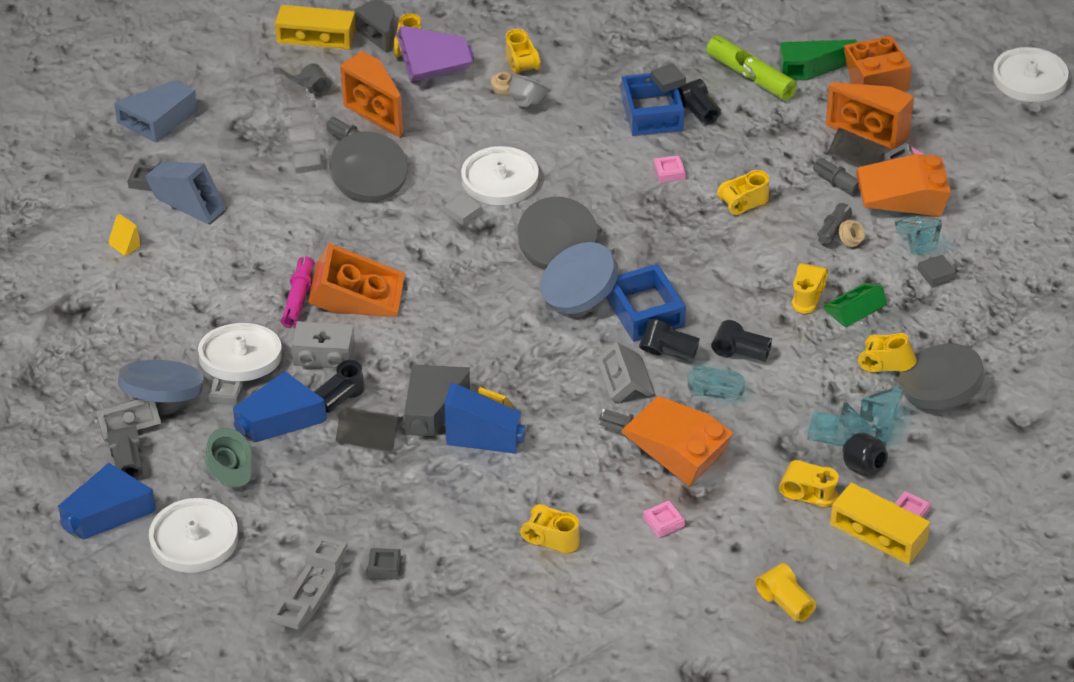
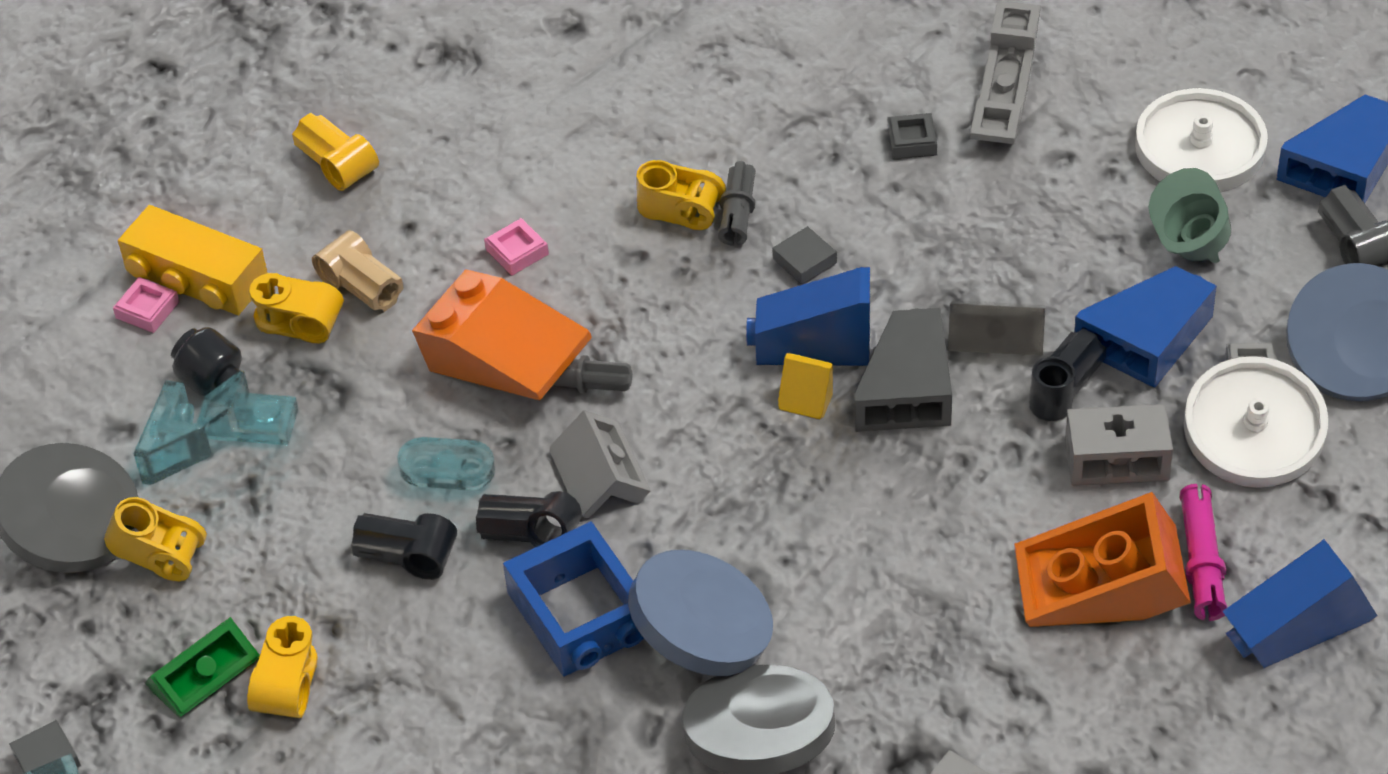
camera: 175 degrees right, 5 degrees up
(259, 250) = (1298, 608): none -> blue slope
(476, 488) = (804, 255): none -> dark grey tile
(513, 521) = (737, 203): none -> dark grey axle
(774, 509) = (351, 265): none -> tan piece

